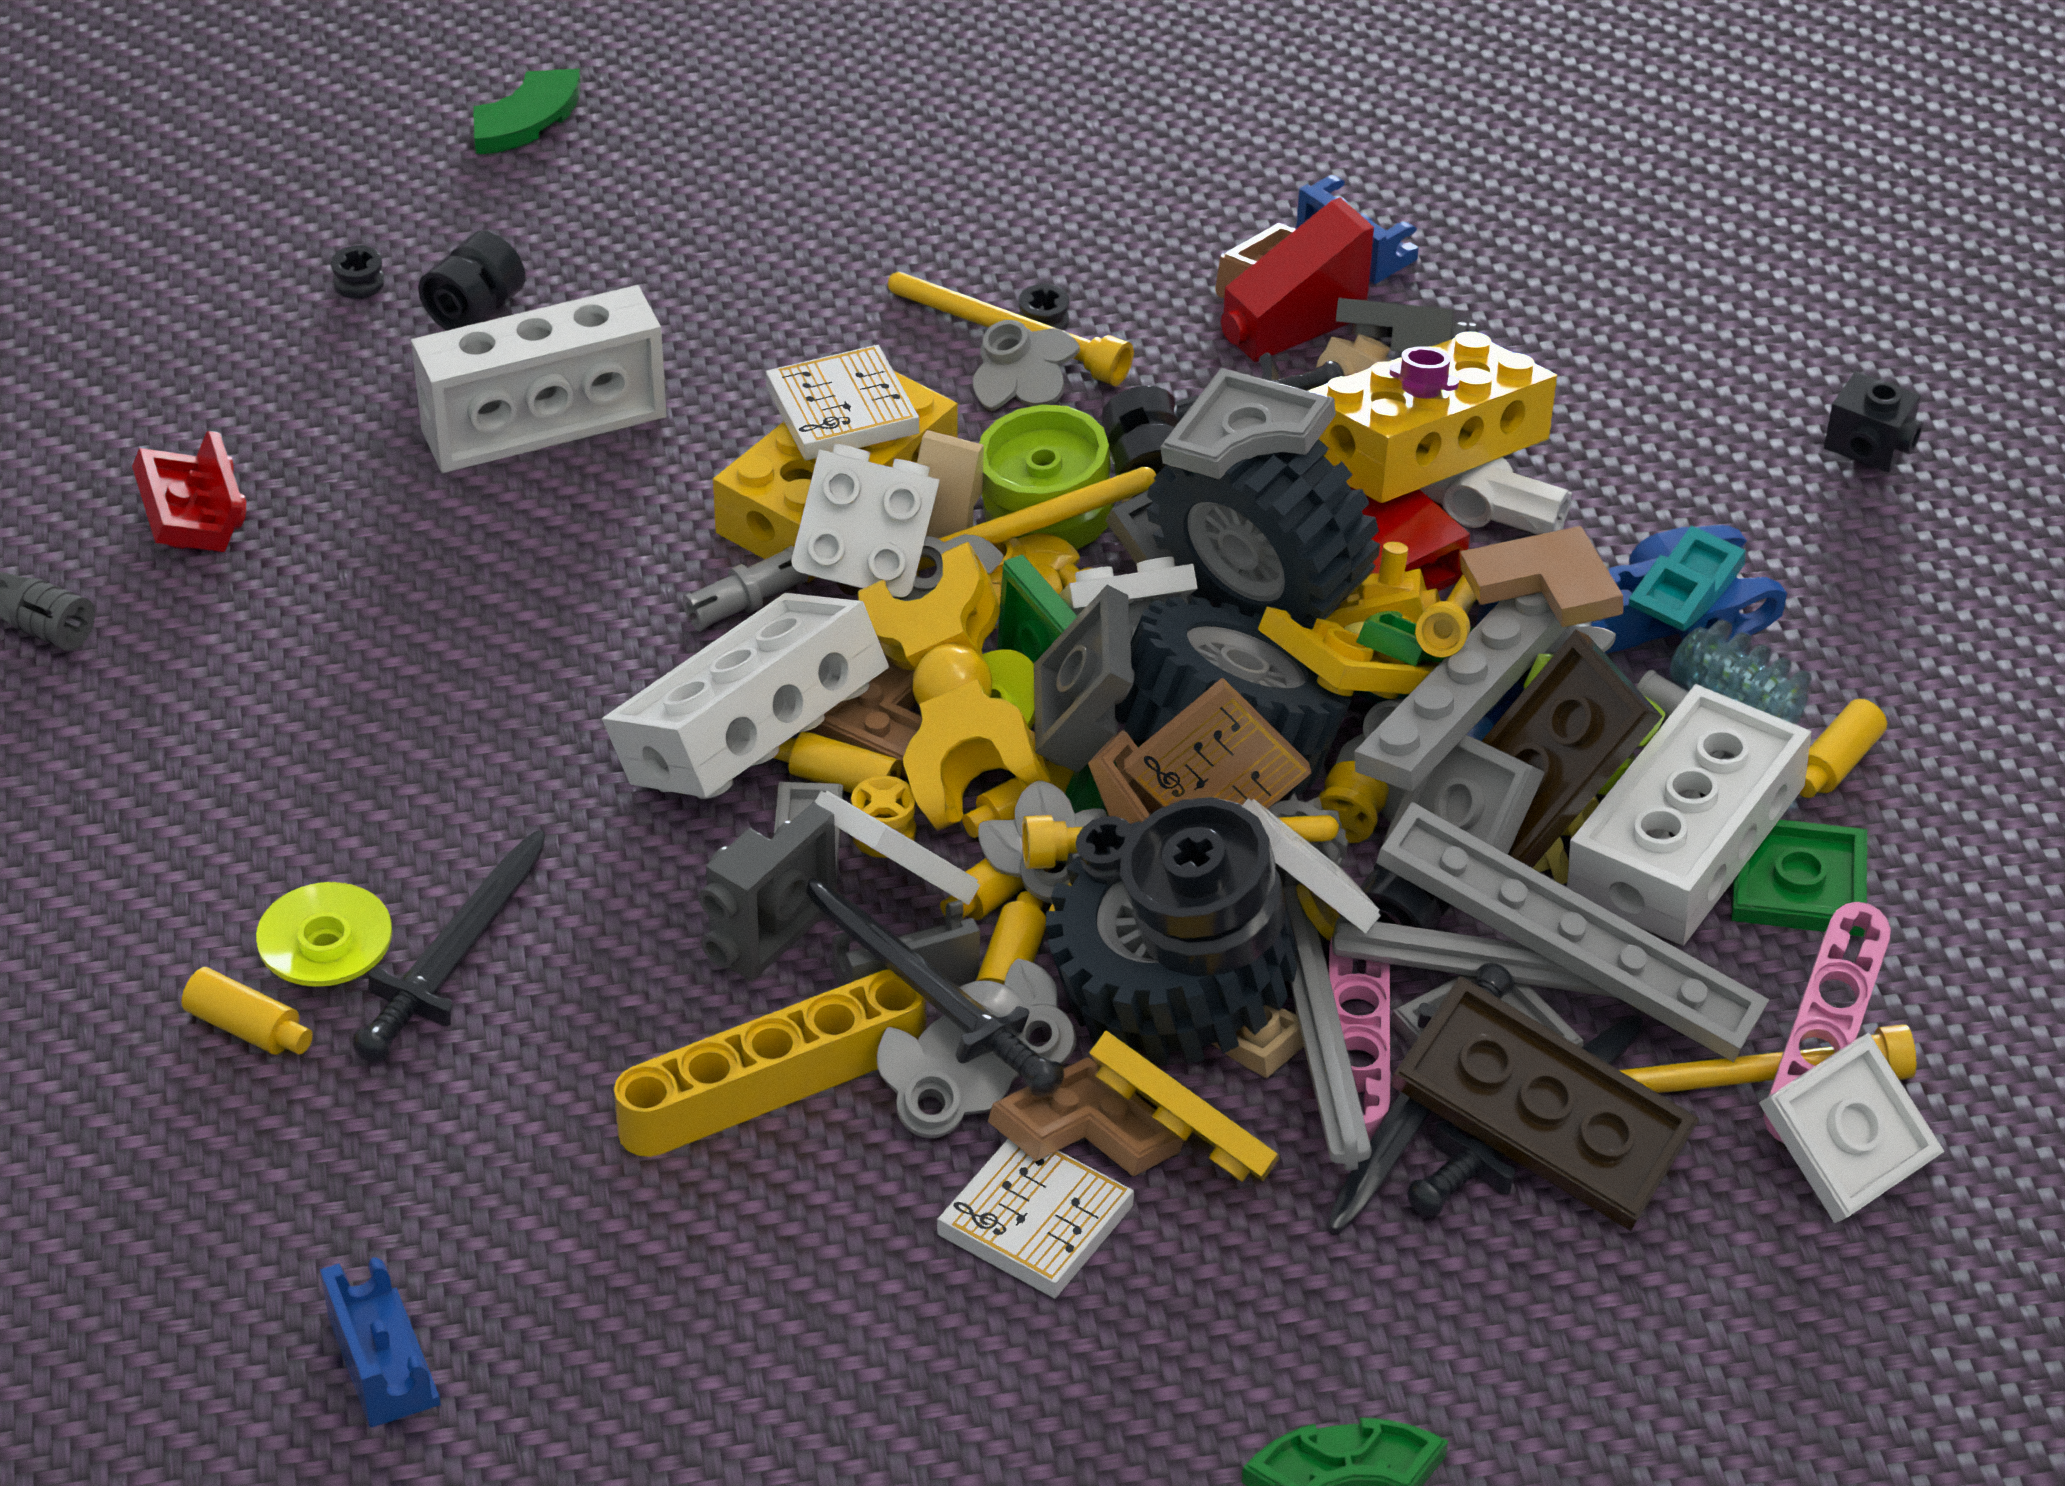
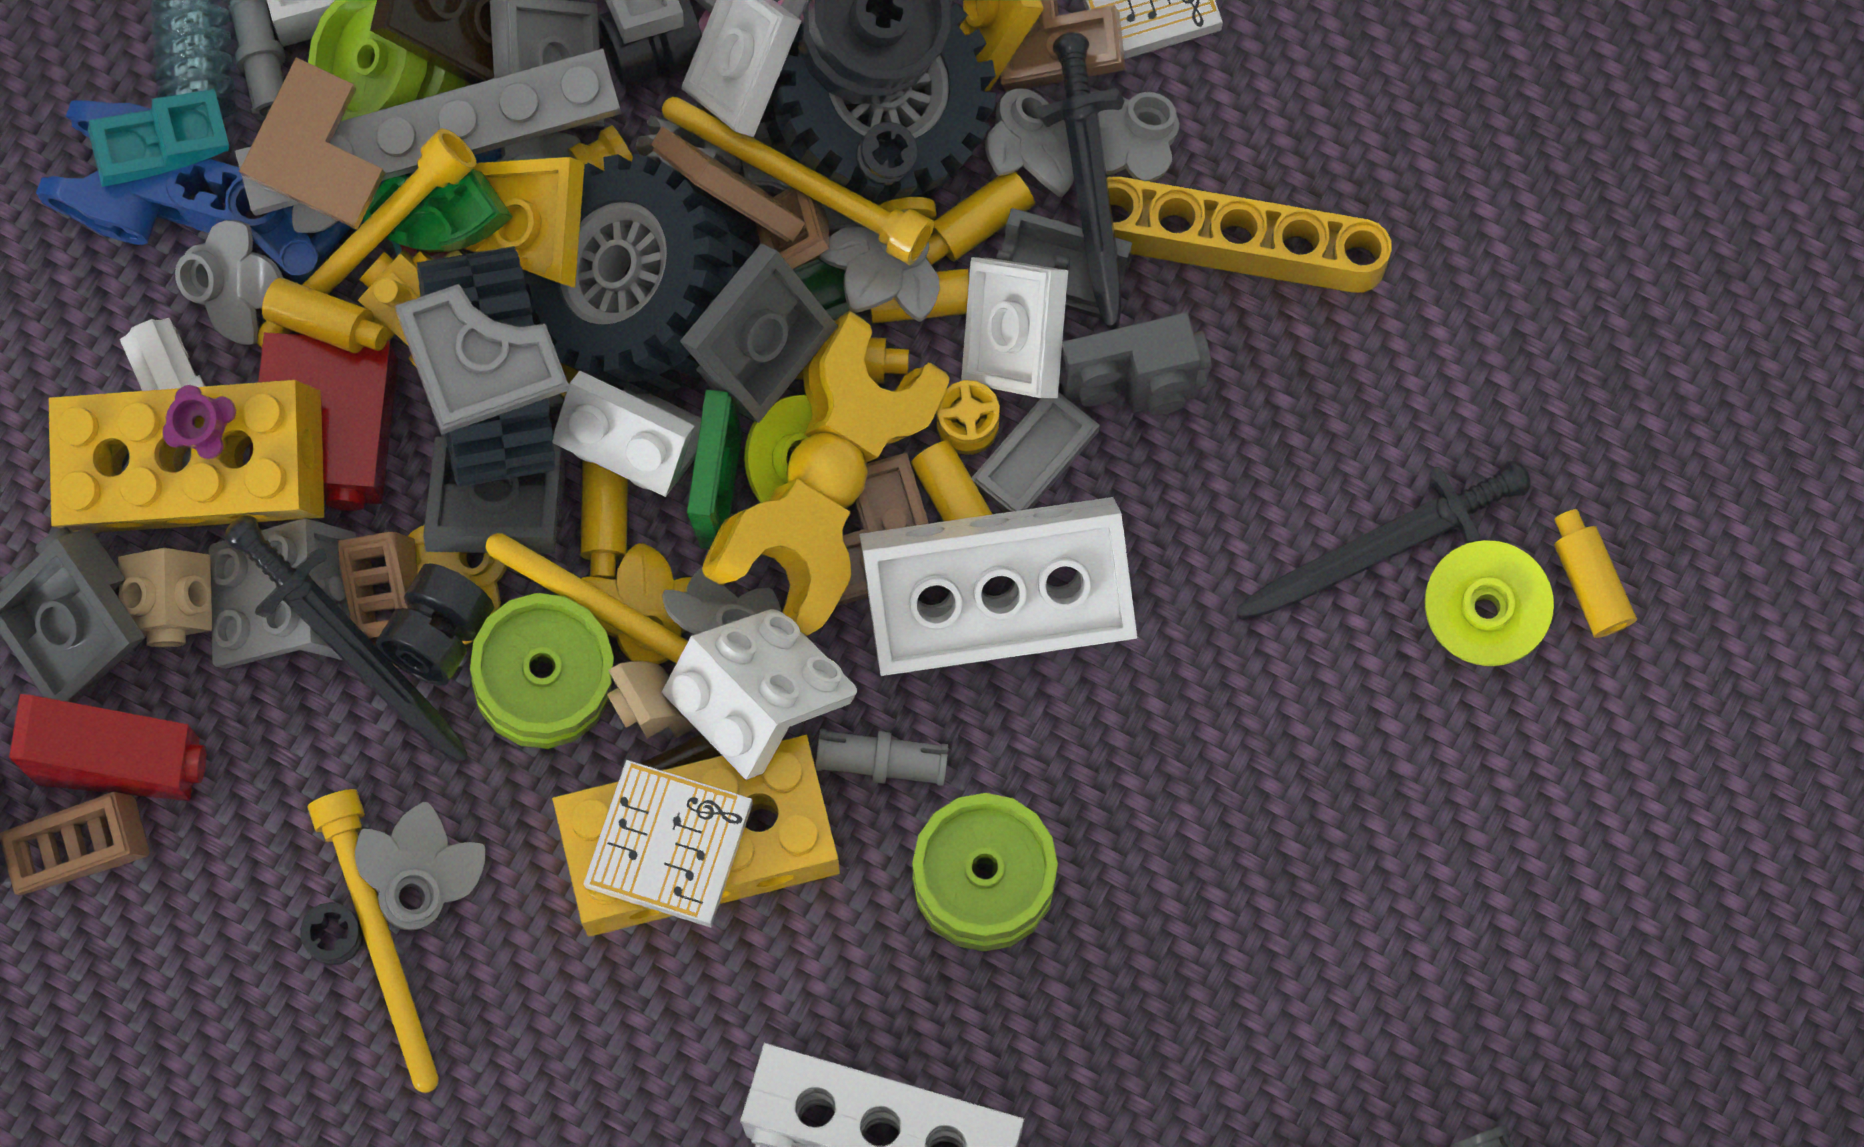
camera: 140 degrees left, 30 degrees up
(378, 1345) = (1682, 193): blue hinge -> none
(597, 548) = (977, 910): none -> lime wheel
(1436, 548) = (322, 316): none -> yellow cylinder

